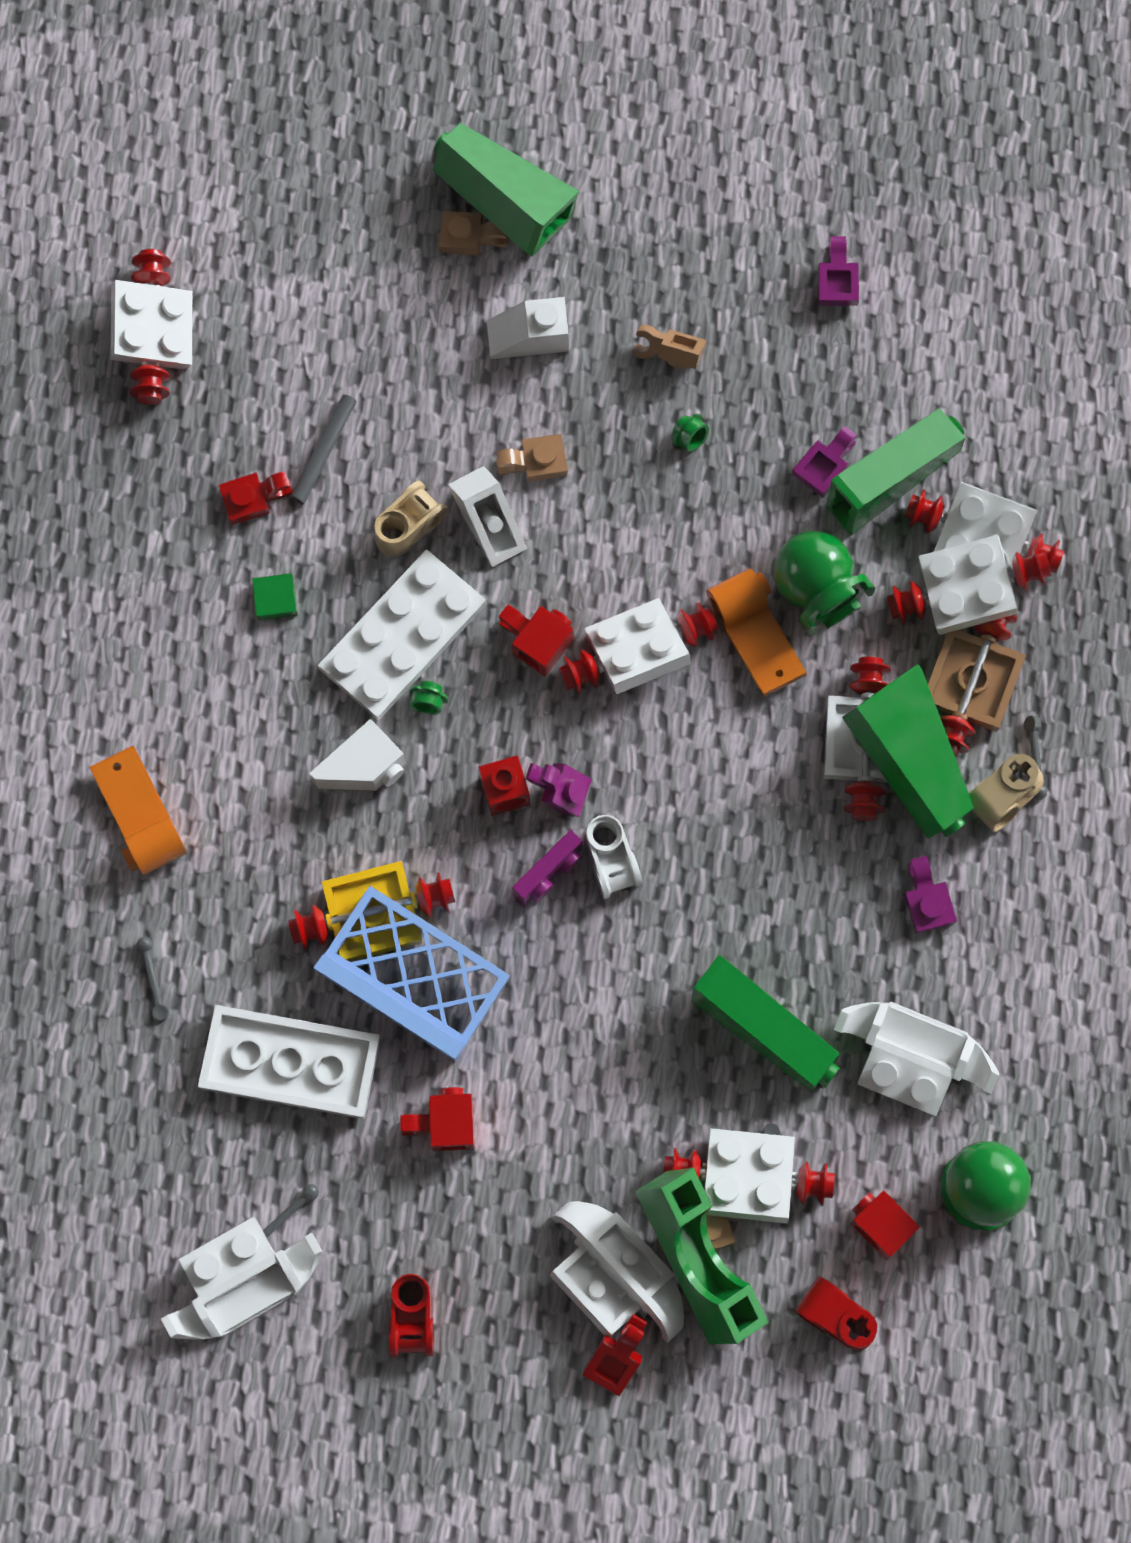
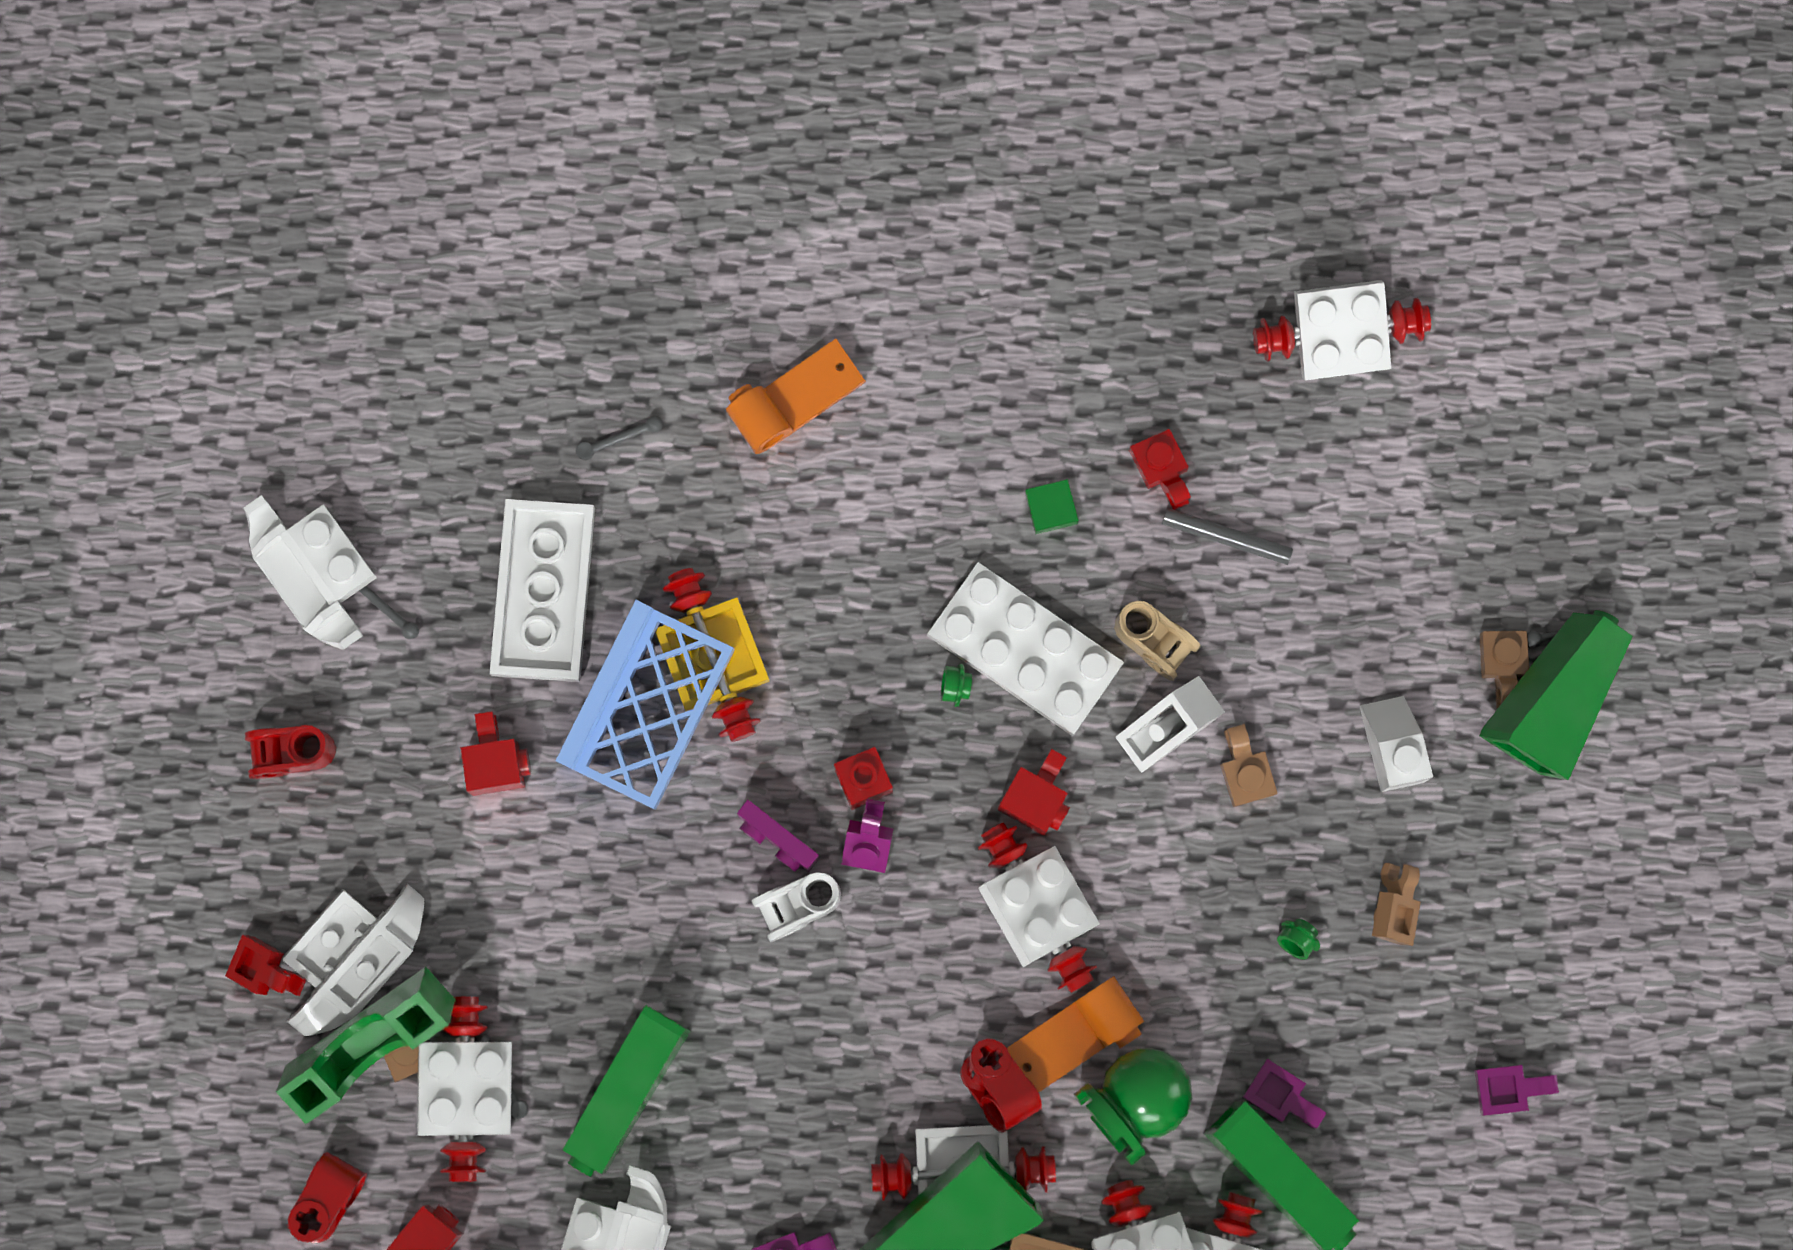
camera: 80 degrees right, 5 degrees up
(361, 762) = (874, 623): white slope -> none
(795, 695) = (1000, 1087): none -> red piece

